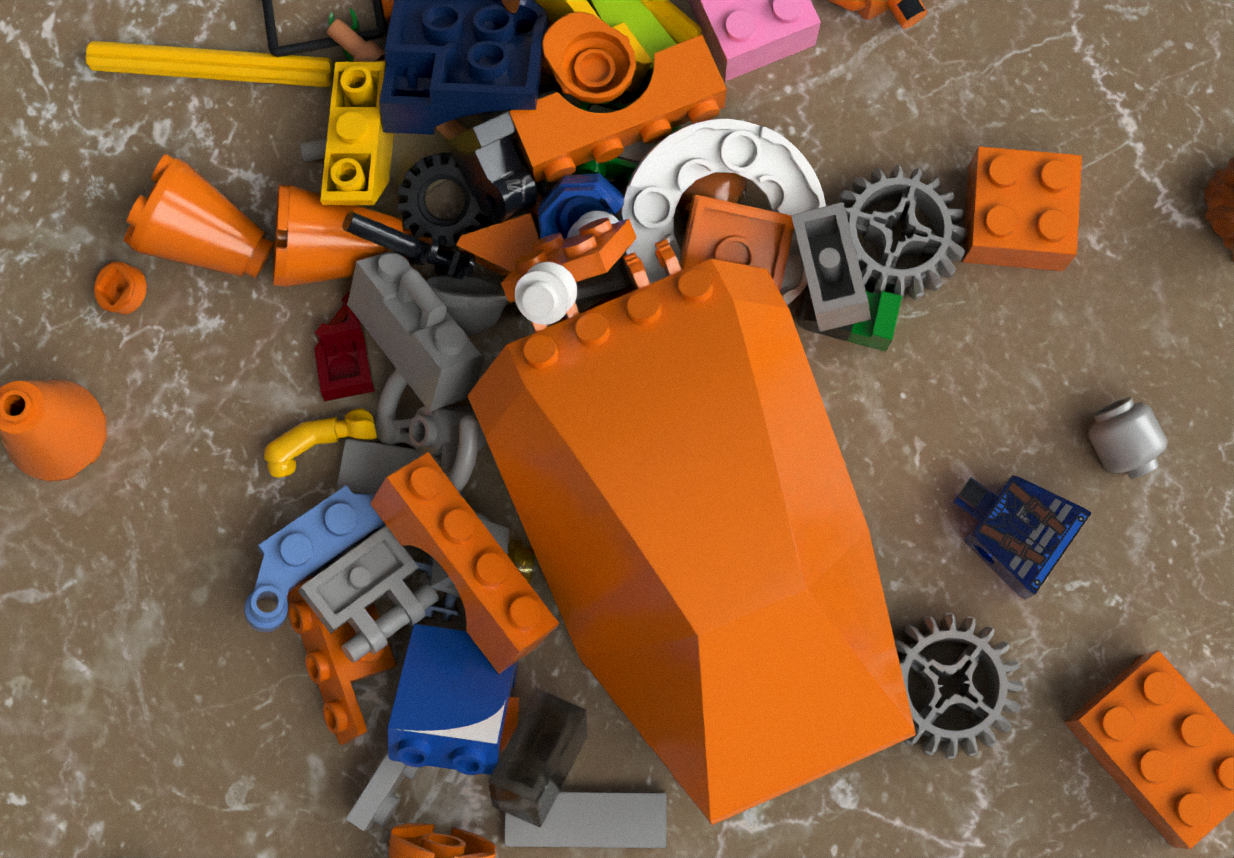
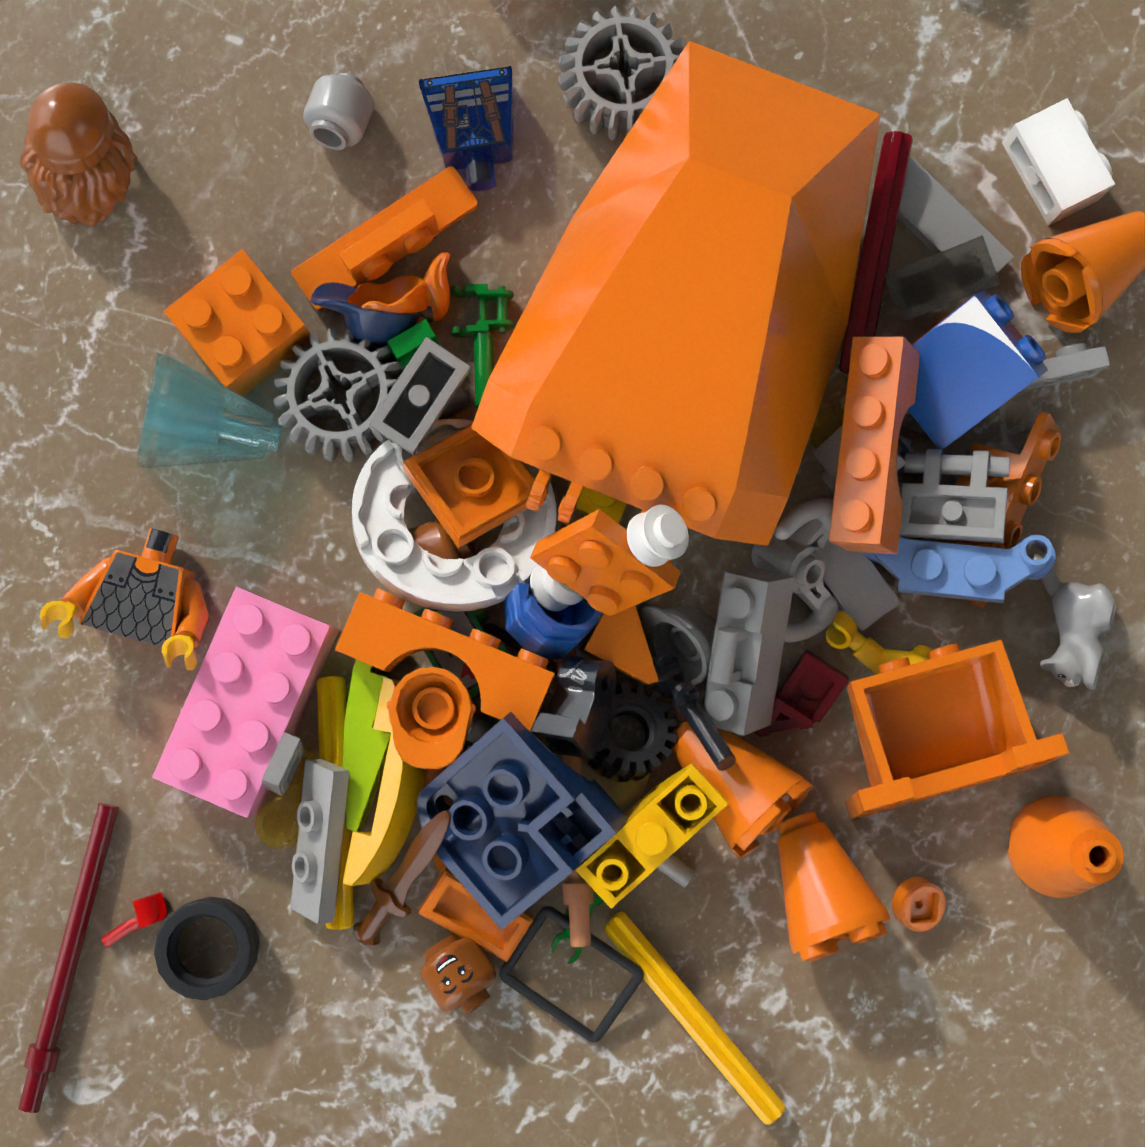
camera: 135 degrees left, 5 degrees up
(188, 607) = (1082, 618): none -> light grey animal
(219, 411) = (942, 727): none -> orange windscreen
(618, 743) = (877, 240): none -> dark red axle
(847, 386) = (481, 331): none -> green piece
(933, 323) = (389, 308): none -> hair
(973, 106) = (200, 421): none -> clear light blue slope
(990, 381) = (389, 235): none -> orange bracket

